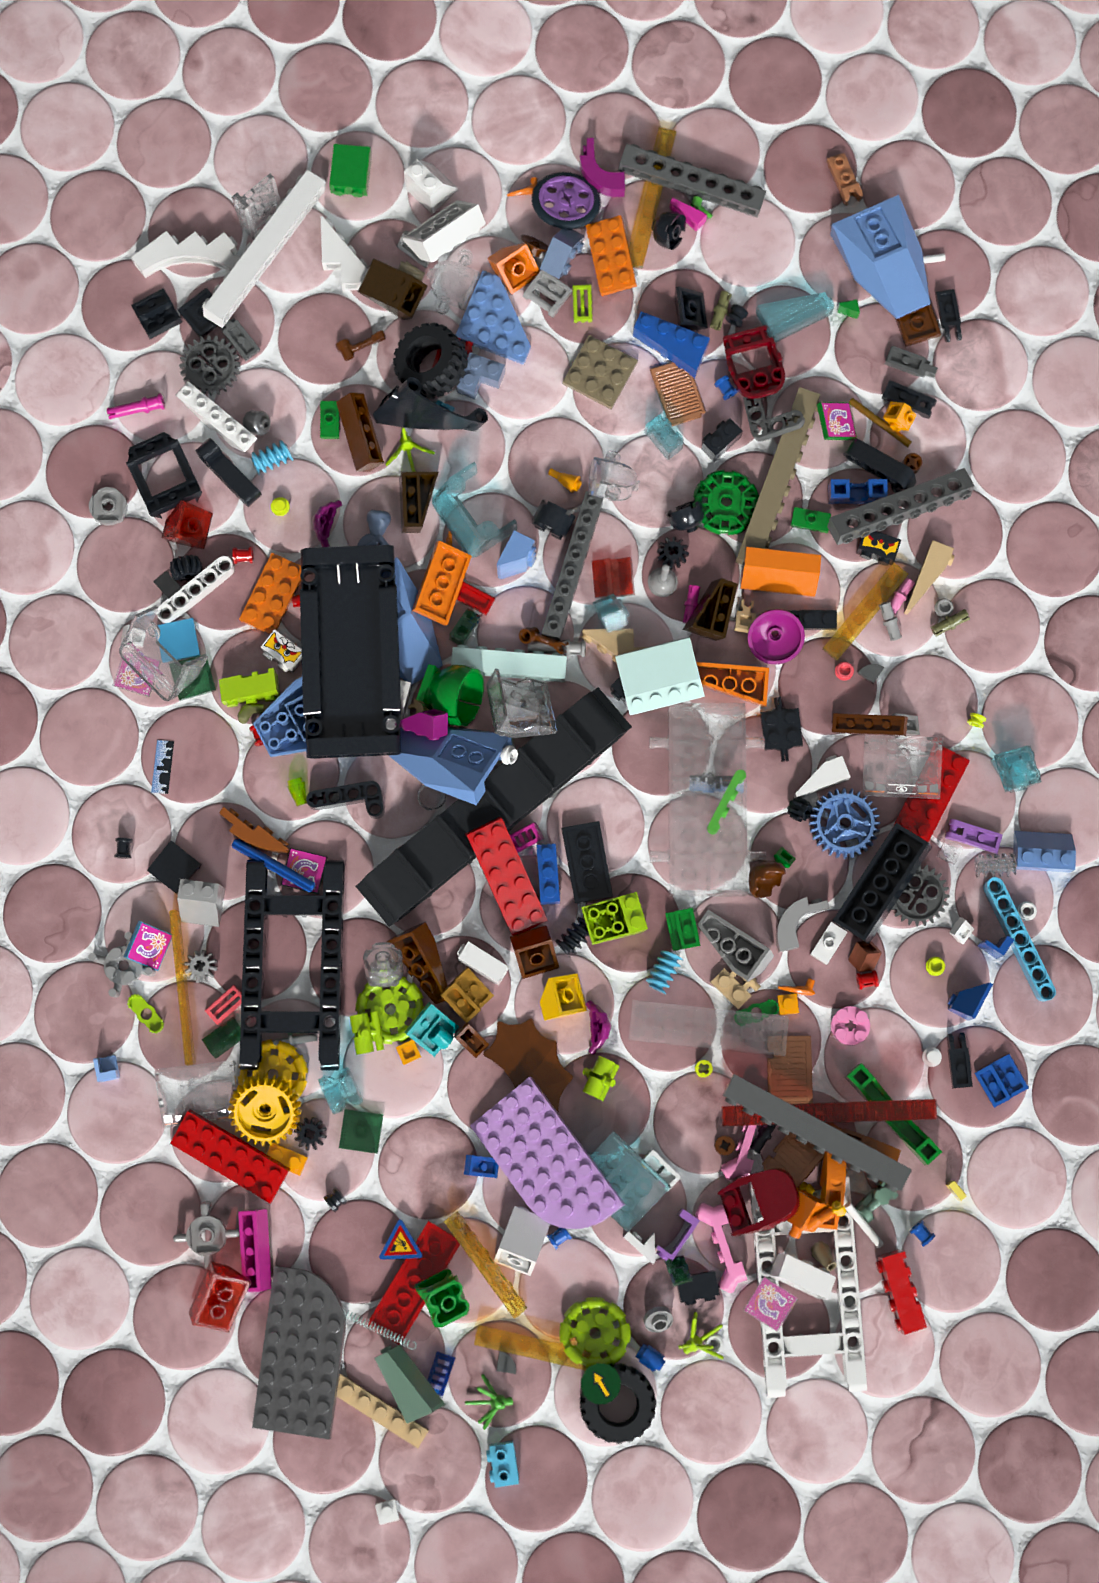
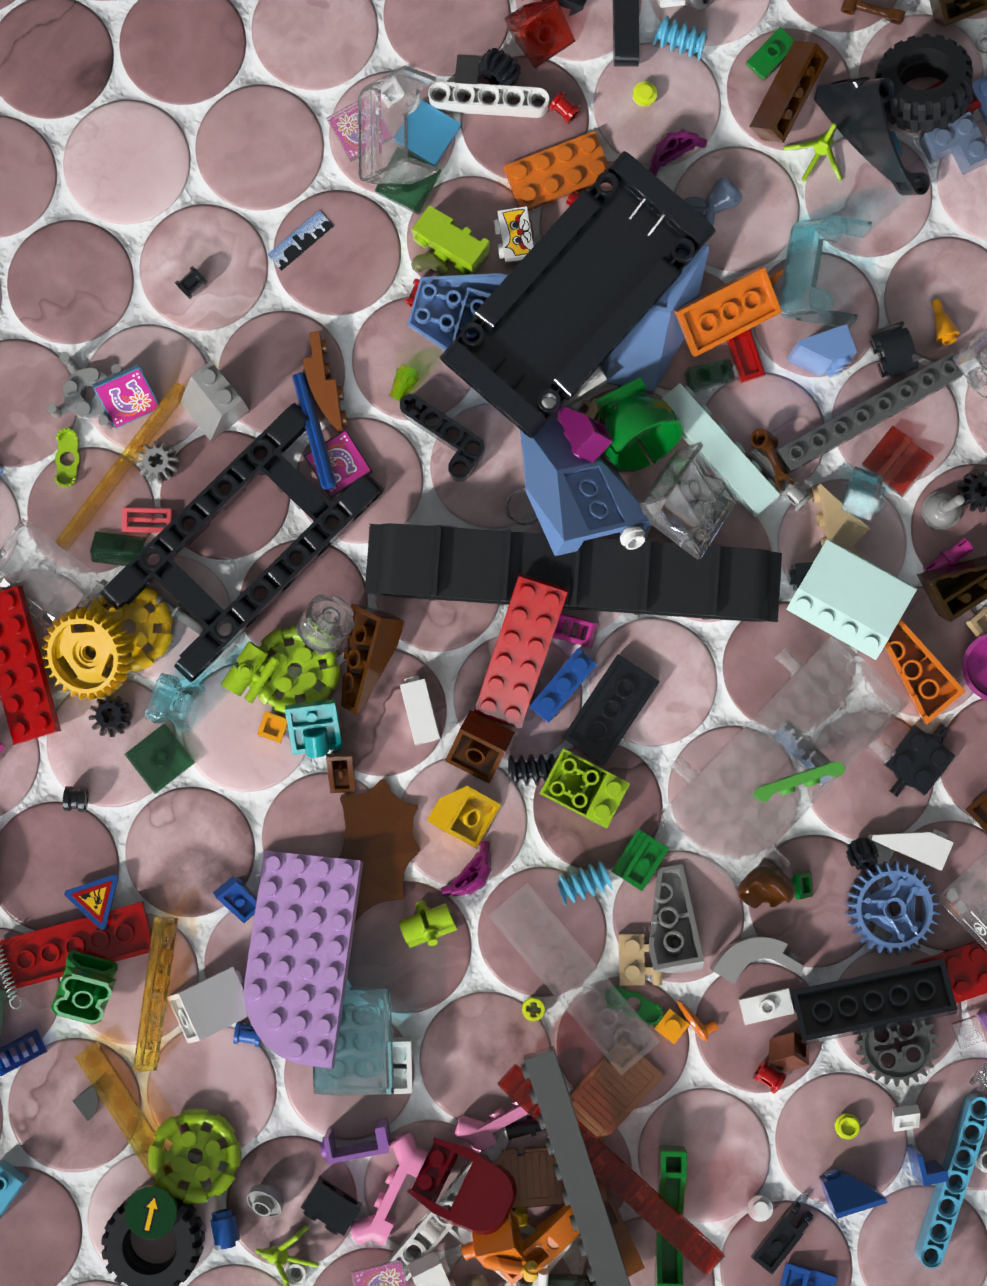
camera: 45 degrees right, 5 degrees up
(173, 865) = (222, 344): black tile -> none
(288, 1158) = (69, 718): light orange plate -> none
(415, 496) = (782, 204): dark brown wedge -> none
(466, 994) = (377, 726): pearl gold slope -> none
(497, 1402) = (45, 1129): bright green plant -> none
(647, 1249) = (317, 1123): white slope -> none
(678, 1270) = (325, 1178): clear green slope -> none
(721, 1146) = (484, 1095): reddish brown wheel -> none
(841, 1032) = (696, 1103): bright pink plate -> none

